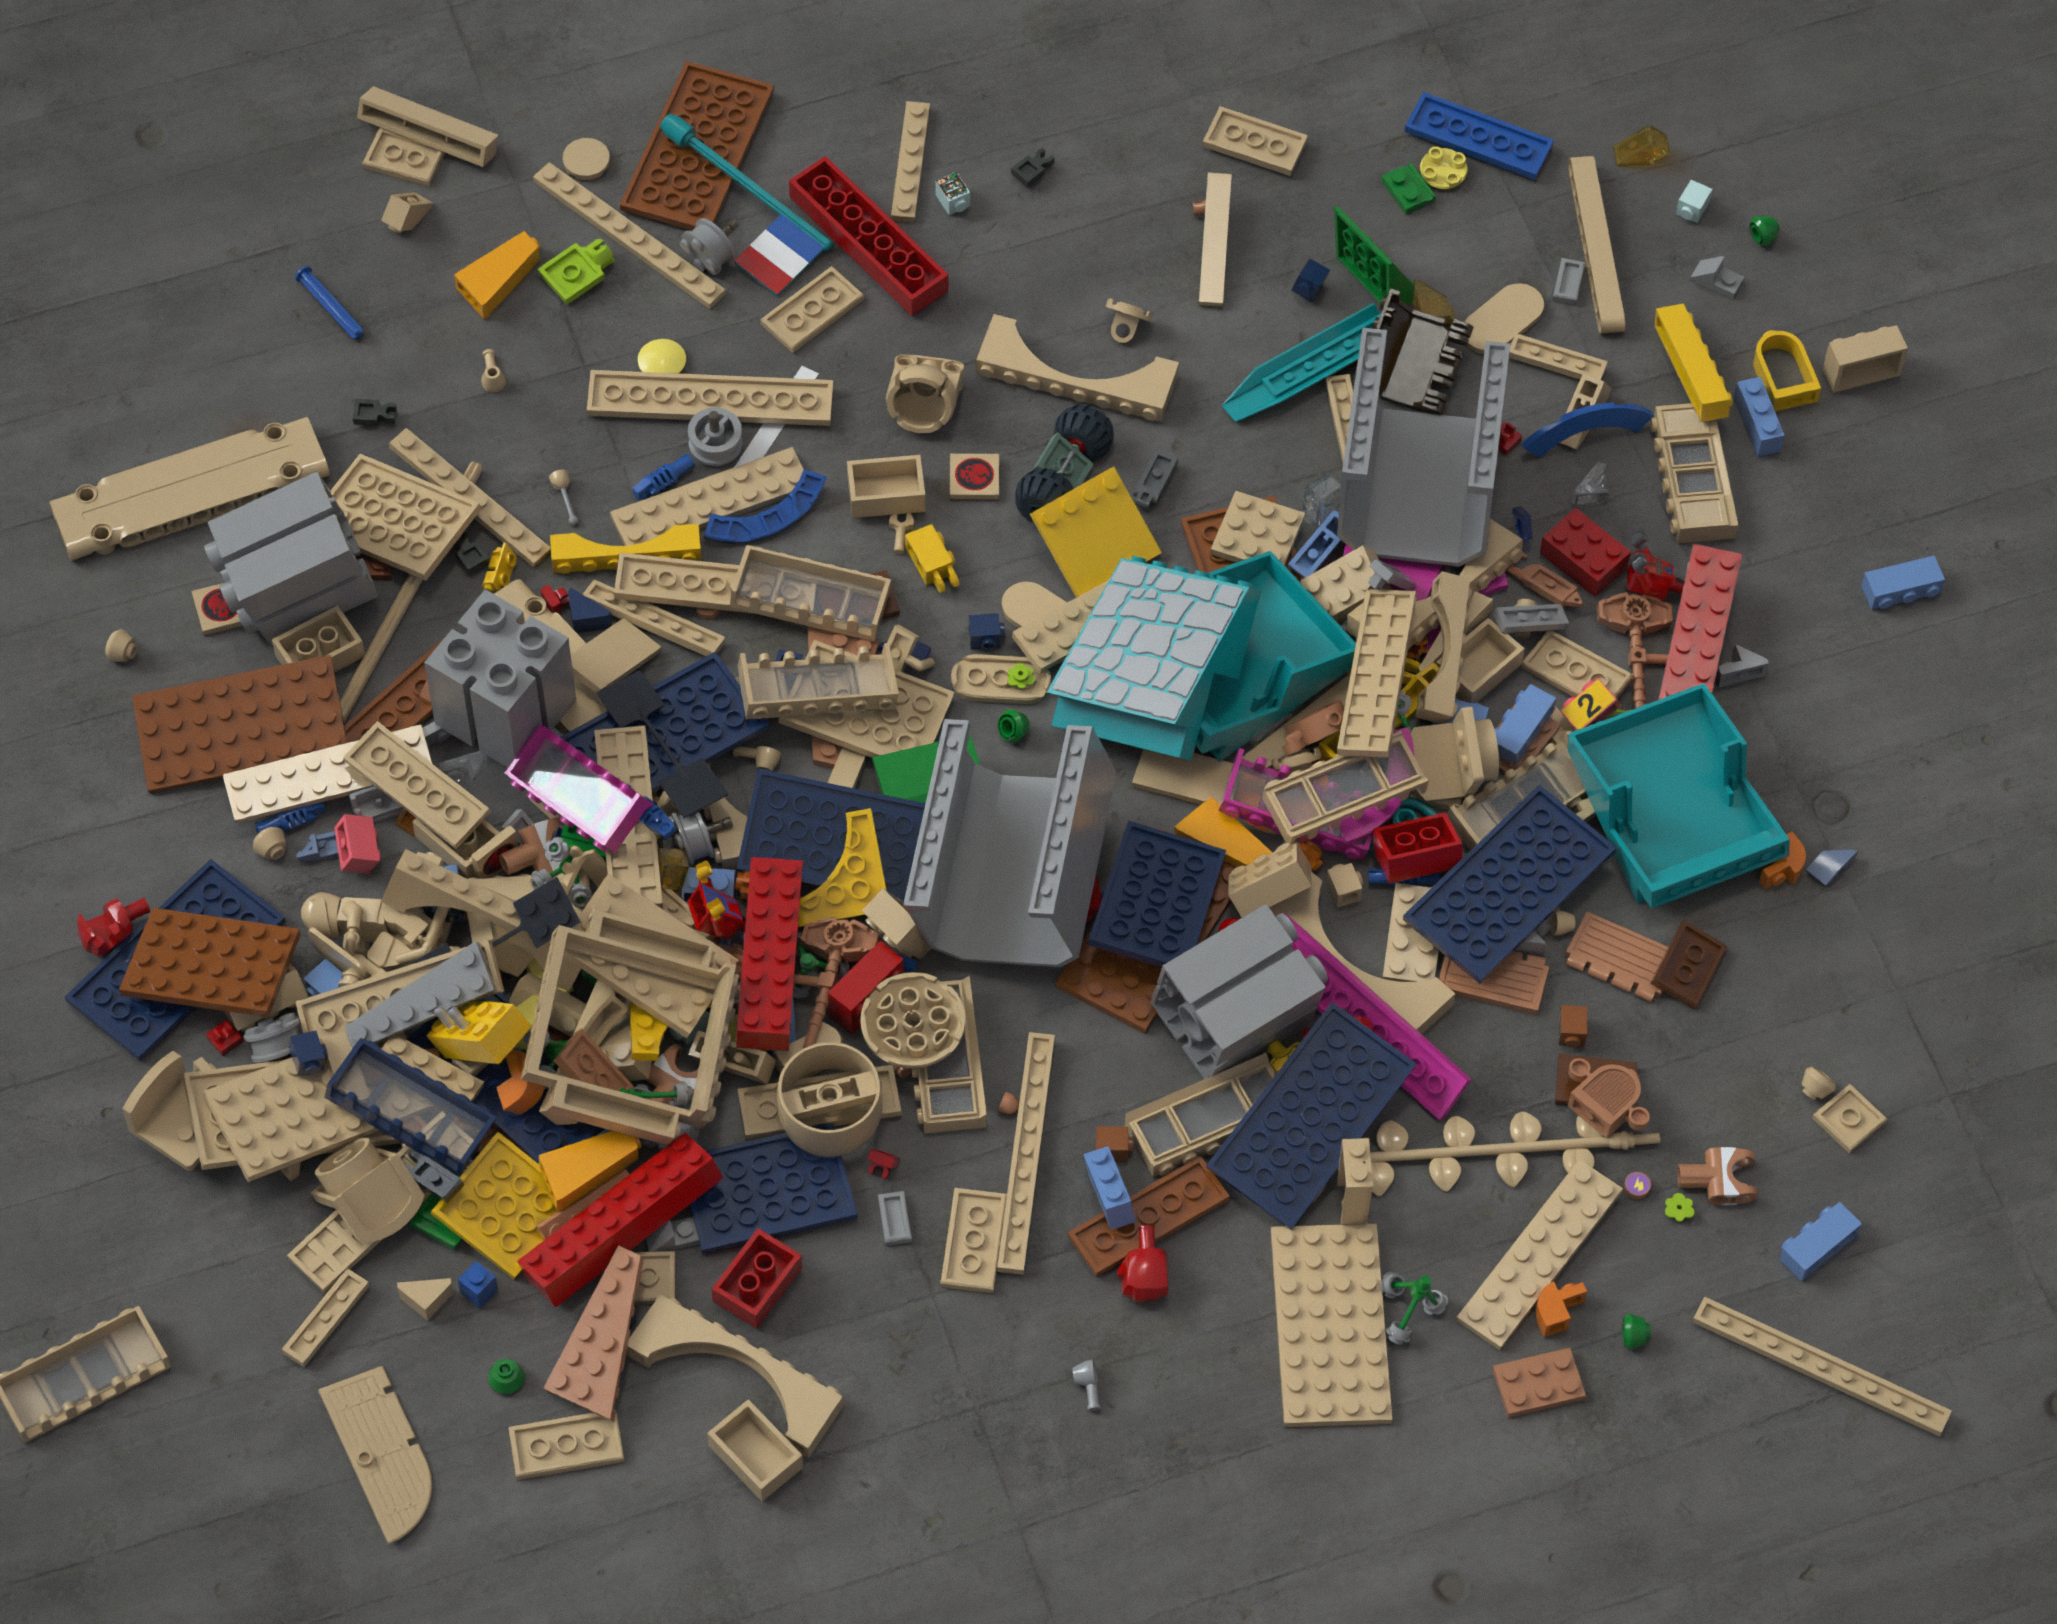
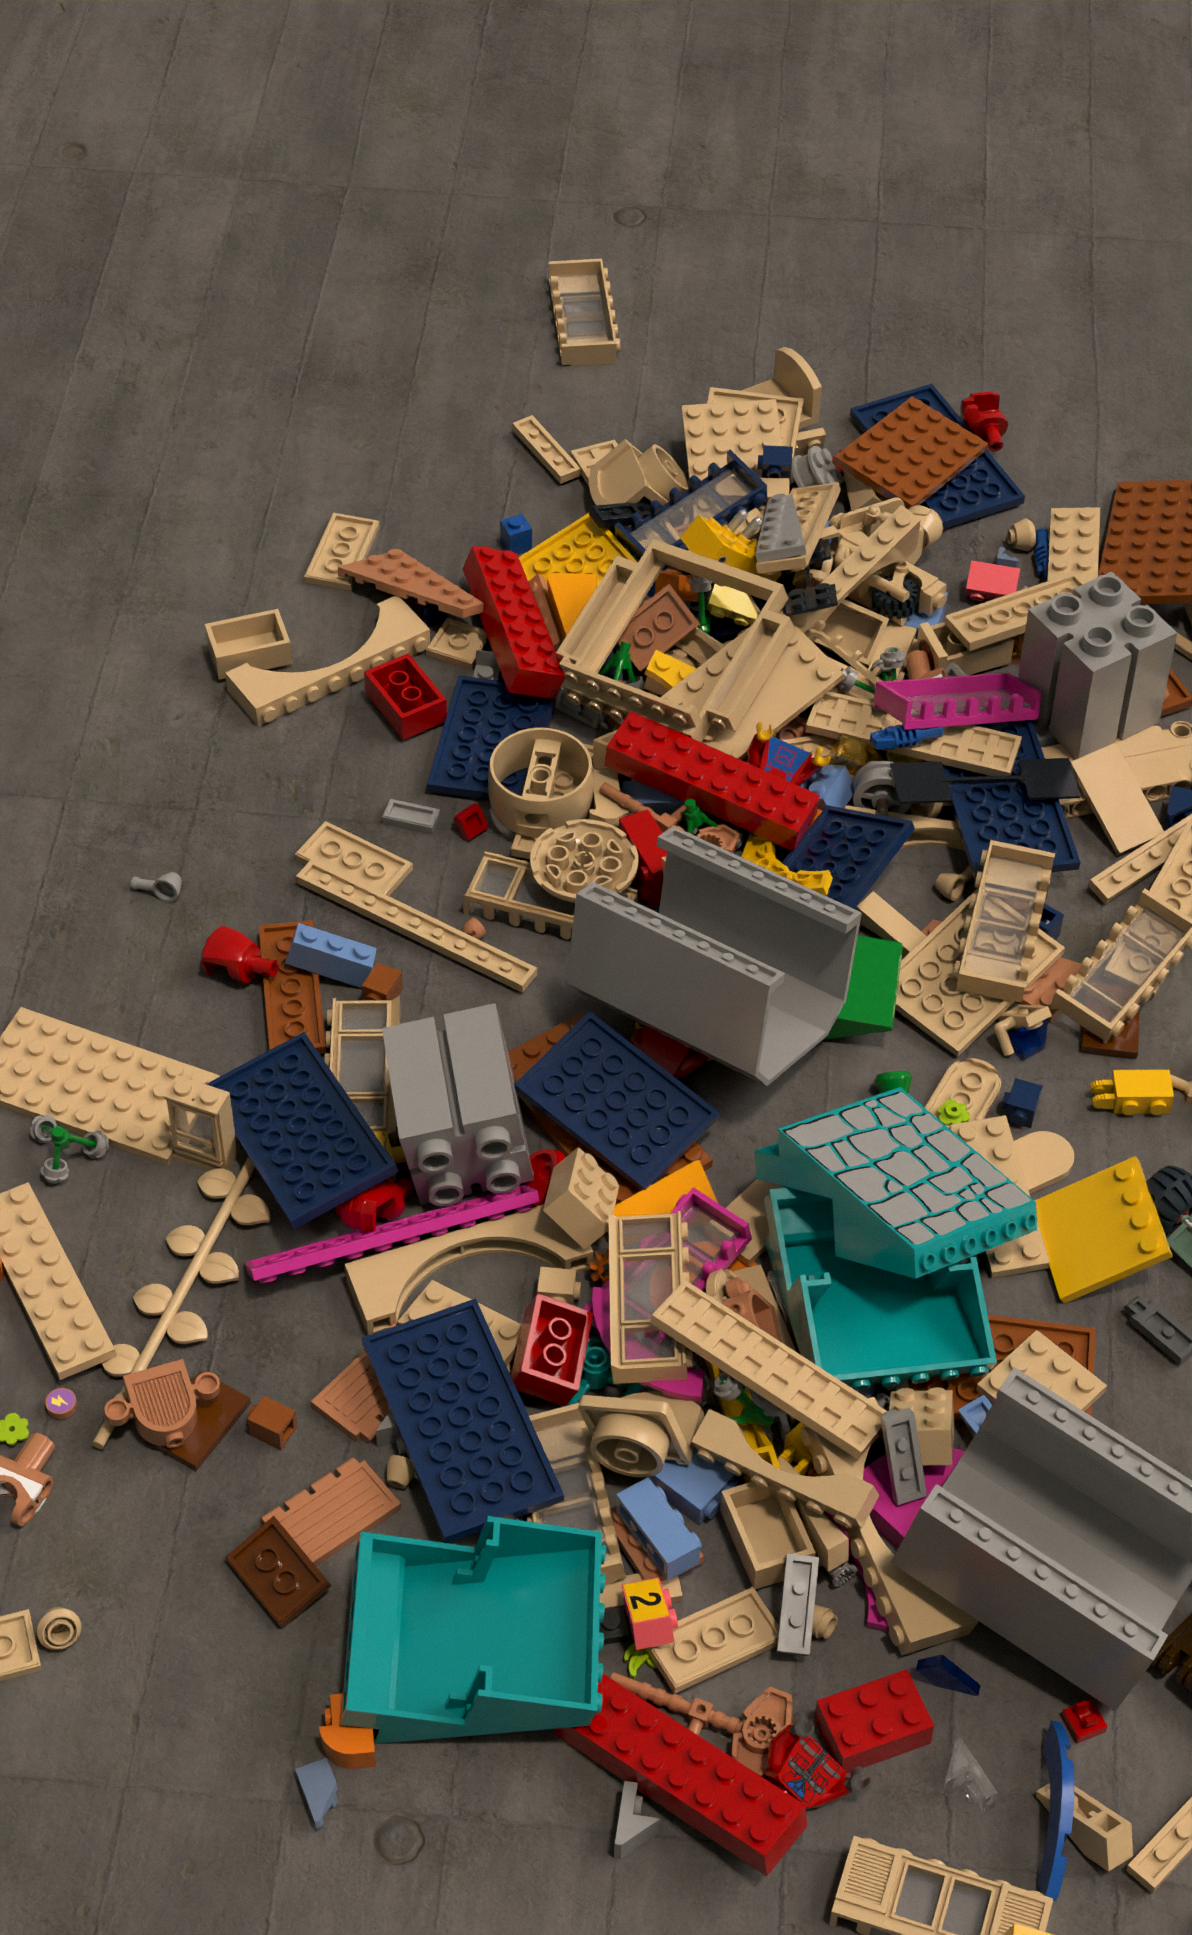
camera: 115 degrees right, 10 degrees down
(377, 1445) = (413, 448): tan door -> none
(425, 1296) = (527, 501): tan slope -> none
(506, 1376) = (425, 532): green cone -> none
(1547, 584) = (848, 1661): nougat plate -> none

